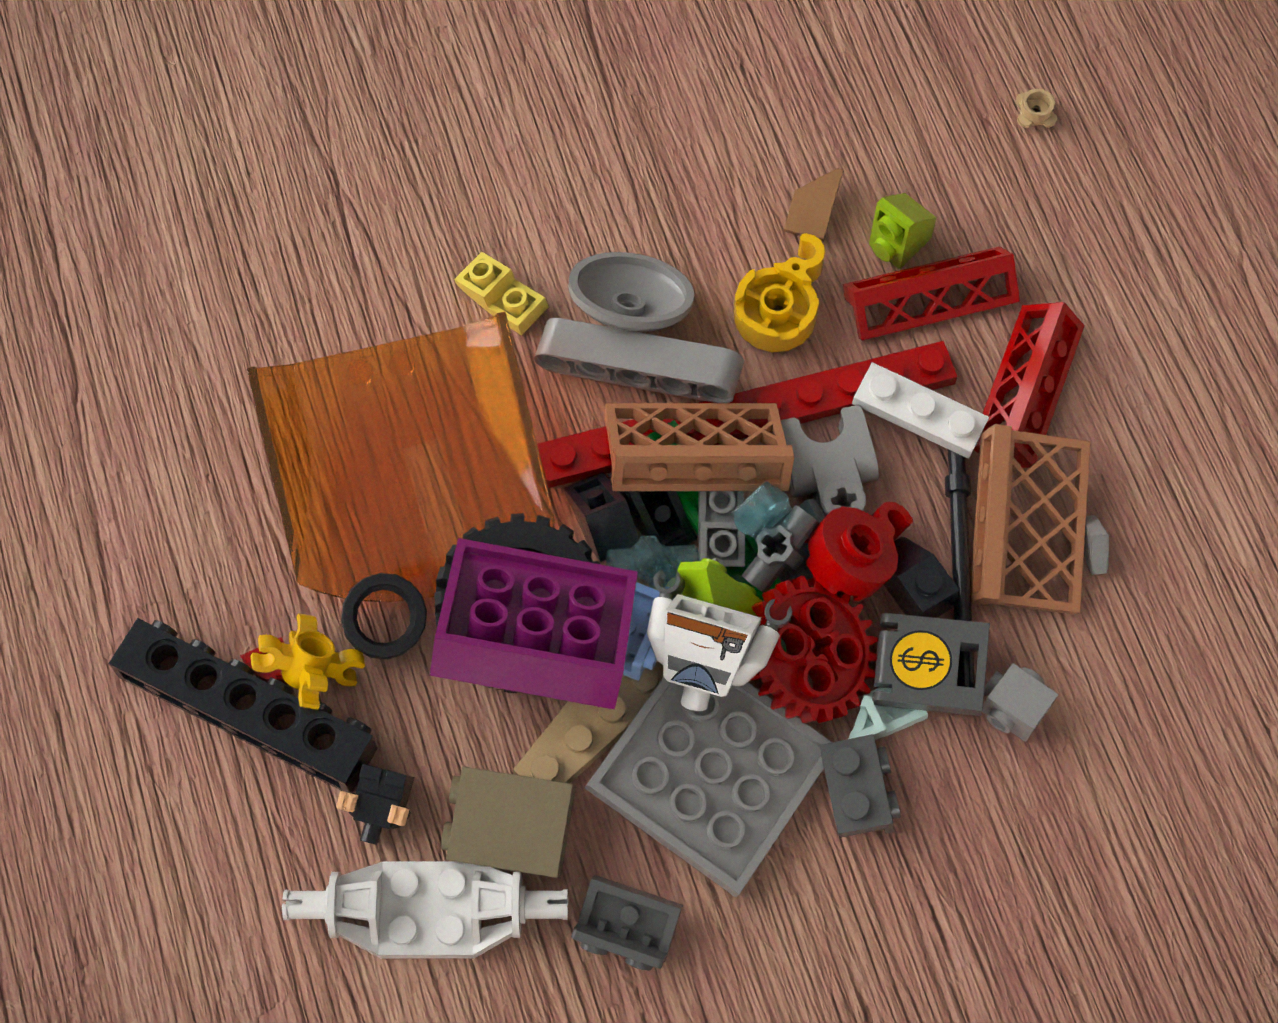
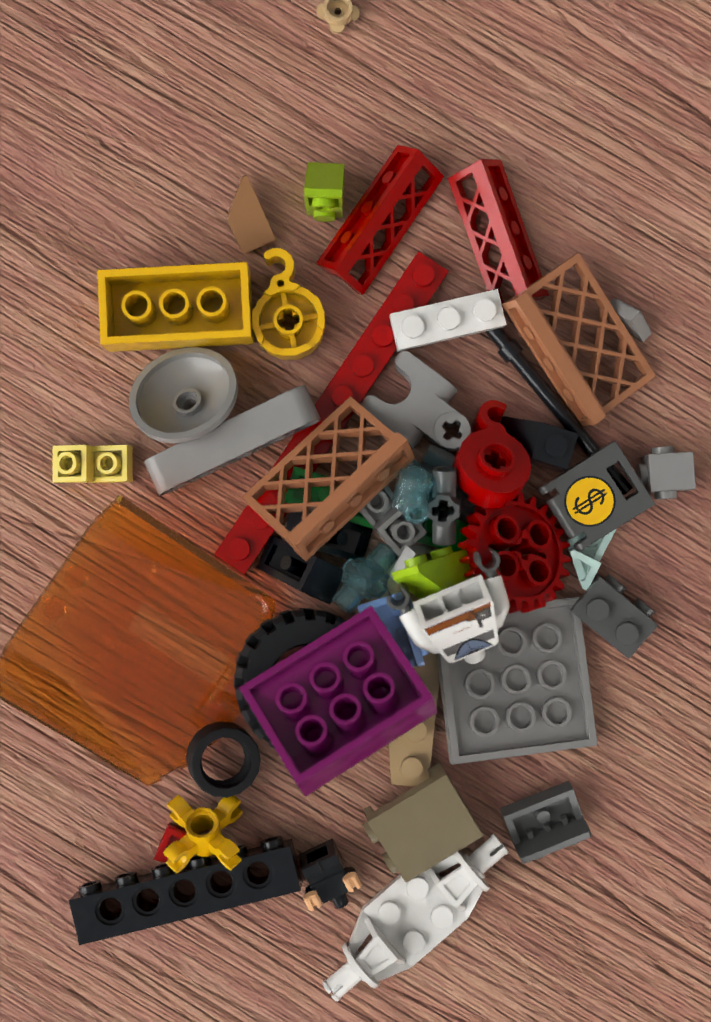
camera: 40 degrees left, 20 degrees up
(688, 220) = (175, 307): none -> yellow brick

